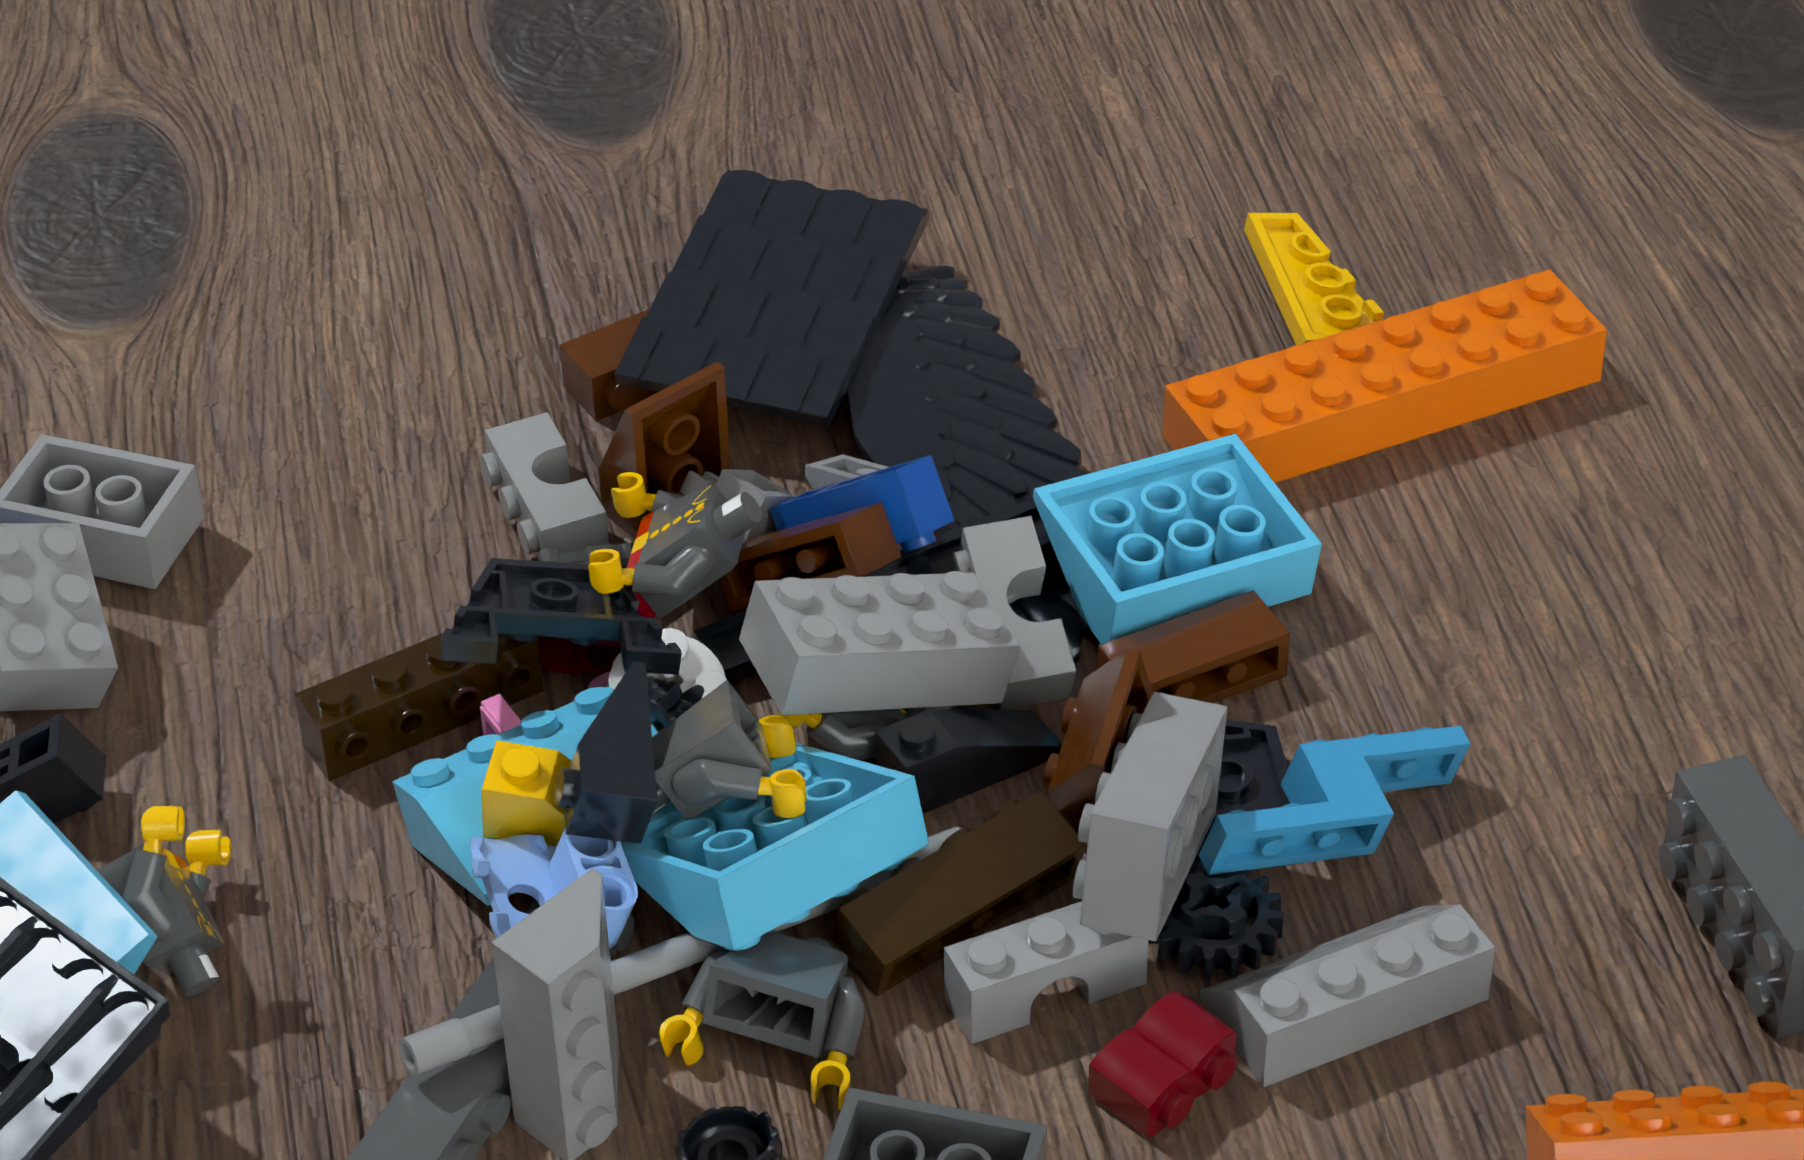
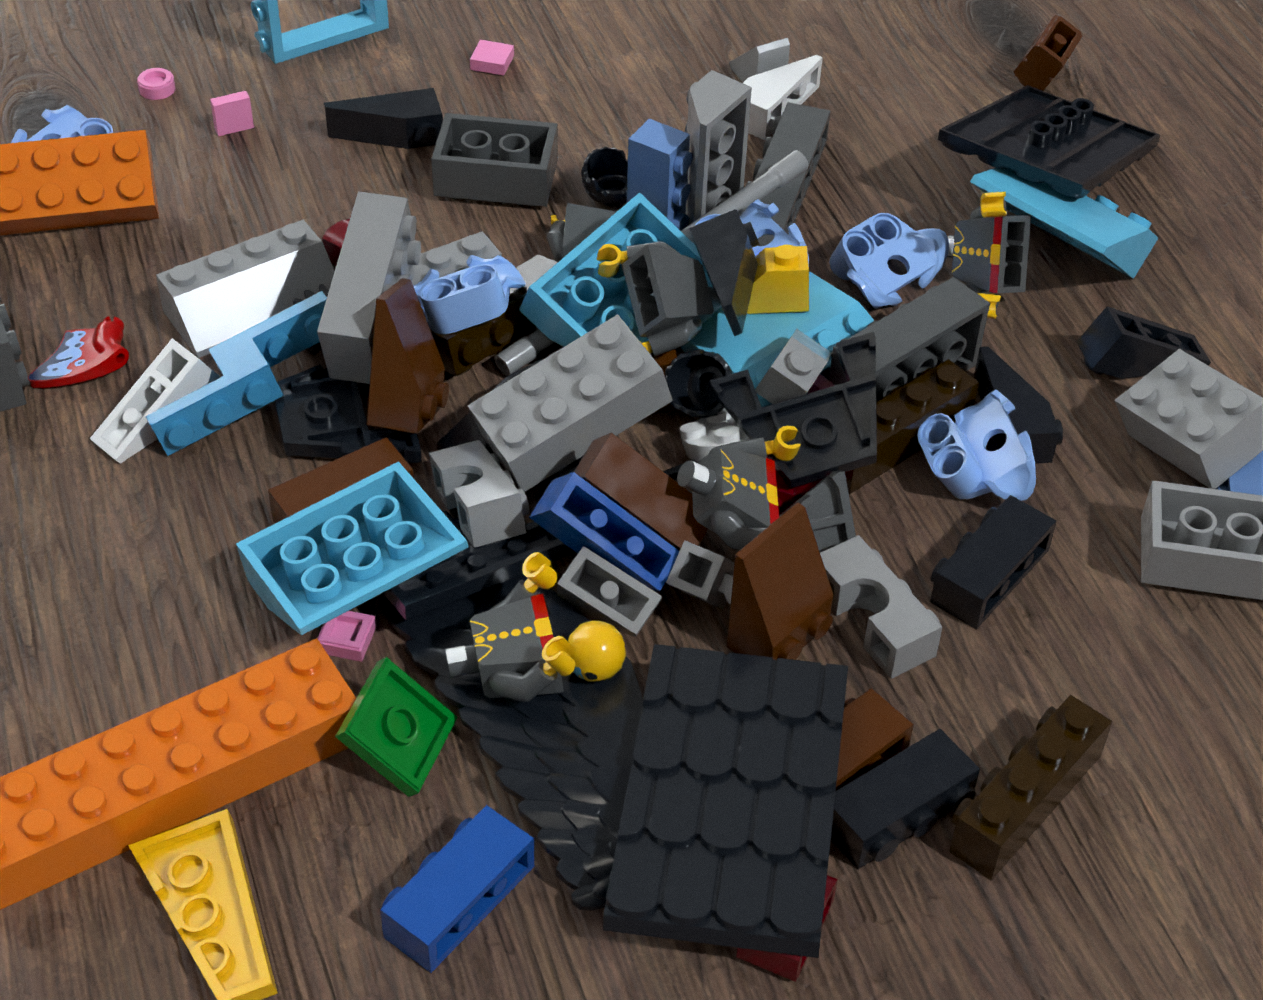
camera: 170 degrees right, 5 degrees up
(251, 699) = (1031, 409): none -> black slope
(333, 764) = (923, 334): none -> dark grey brick
(337, 973) = (883, 237): none -> light blue piece
(347, 635) = (960, 453): none -> light blue piece
(377, 529) = (991, 561): none -> black brick
(451, 313) = (1028, 786): none -> dark brown brick
(553, 670) = (793, 369): none -> light grey slope
(567, 312) = (901, 798): none -> black brick
(665, 1030) = (660, 168): none -> medium blue brick
(895, 409) = (597, 650): none -> yellow piece
(985, 419) = (516, 642): none -> dark grey torso
(1000, 816) = (468, 294): none -> light blue piece
(1066, 280) = (457, 888): none -> blue brick
(1125, 391) = (396, 727): none -> green tile
(1457, 802) = (167, 379): none -> white slope
(1591, 910) = (83, 356): none -> red arm

